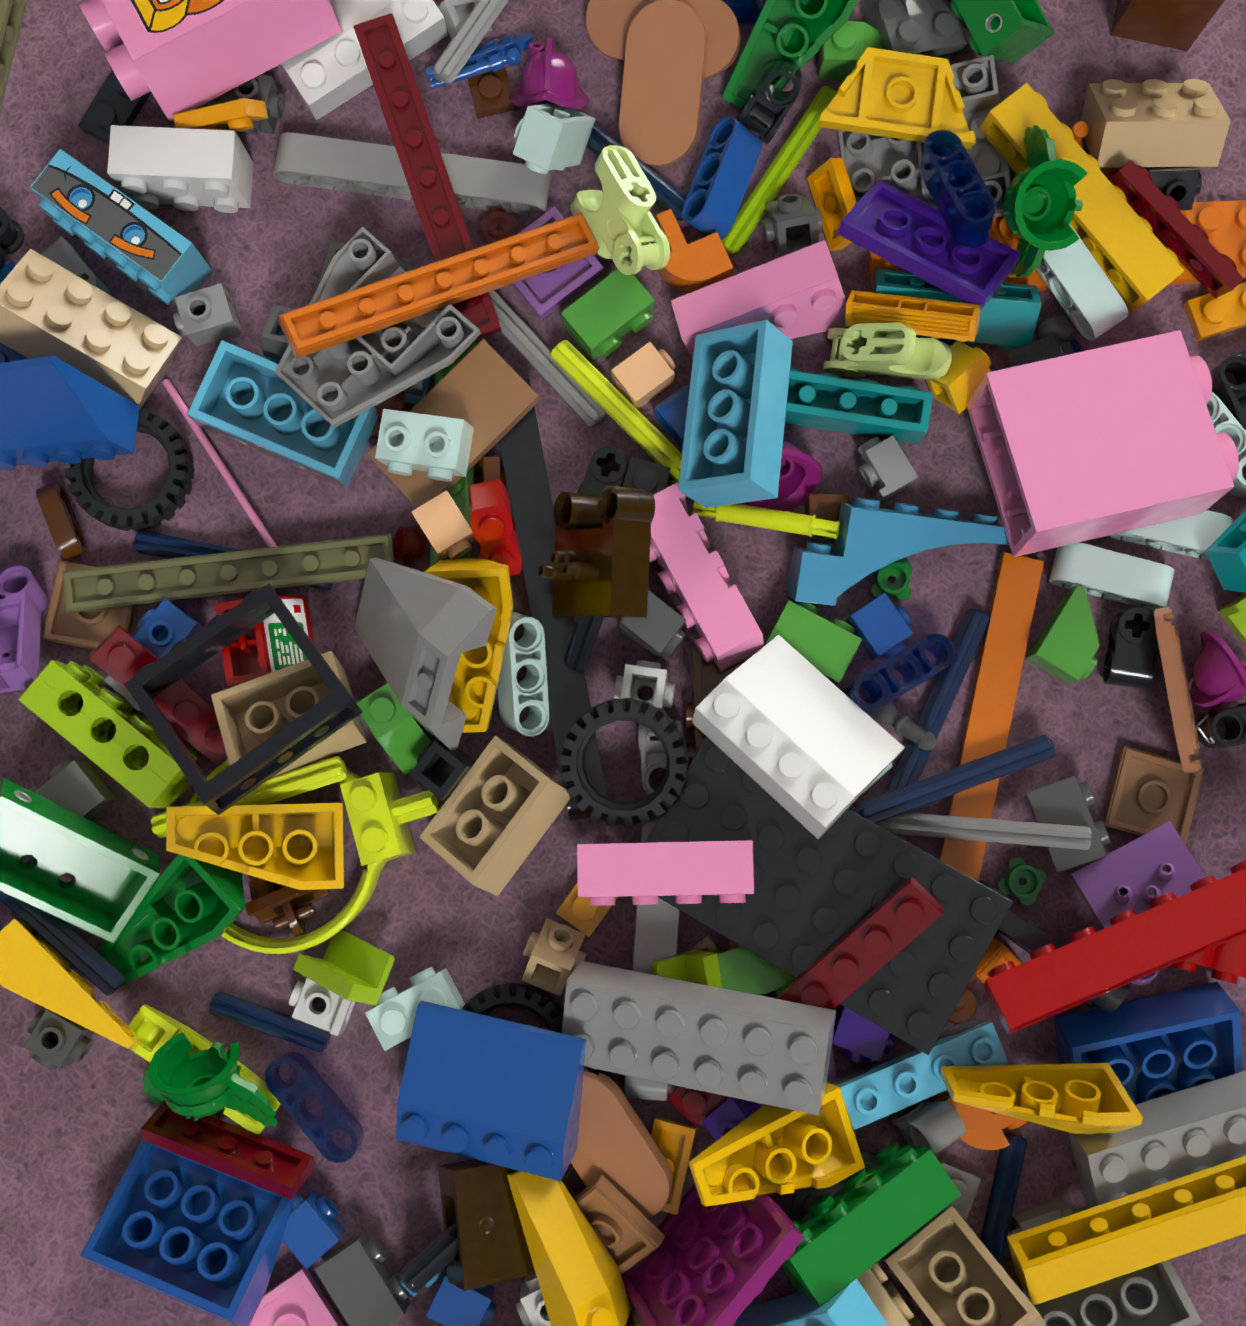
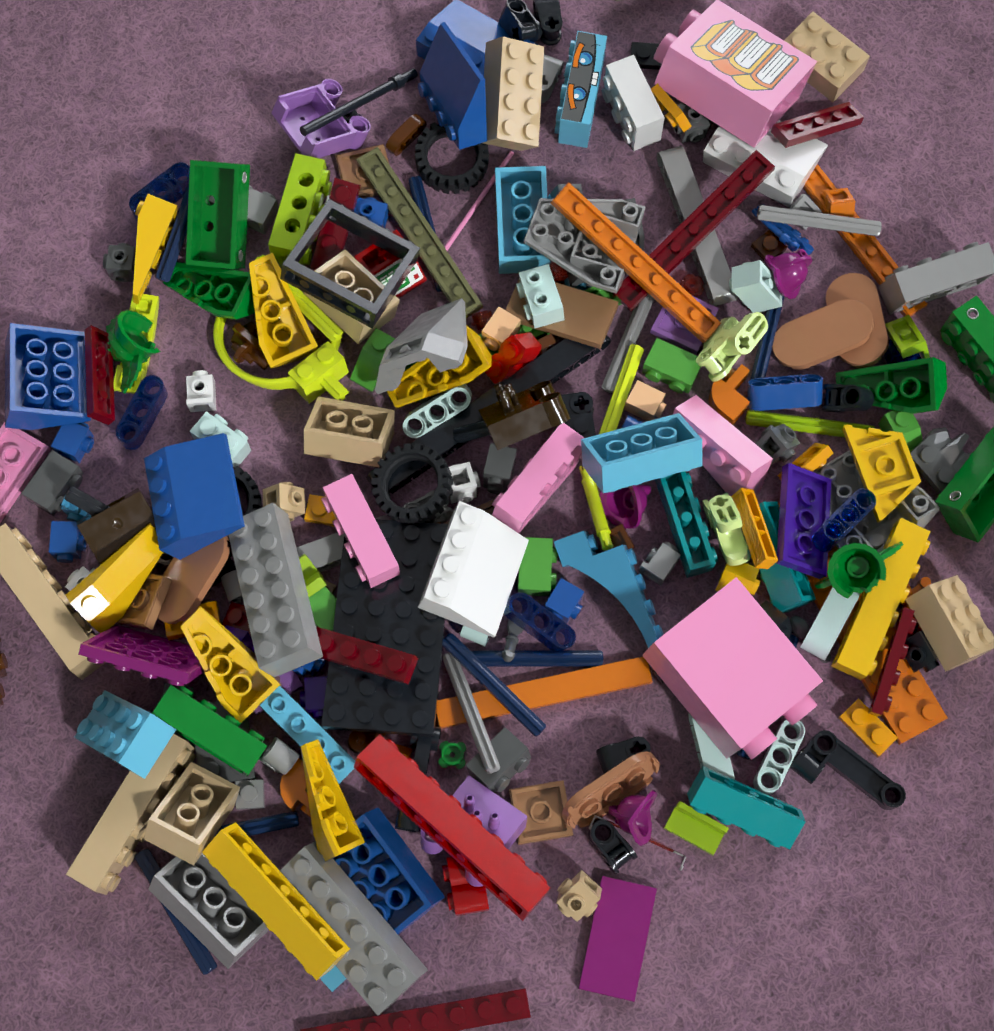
camera: 65 degrees right, 10 degrees down
(206, 315) = (558, 155): light grey brick -> none
(268, 1021) = (178, 368): dark blue axle -> none
(349, 968) = (226, 397): lime panel -> none
(441, 769) = (362, 391): black brick -> none
(899, 589) = (594, 605): green plate -> none
(1068, 639) = (610, 715): bright green slope -> none
(1113, 574) = (664, 724): light aqua beam -> none

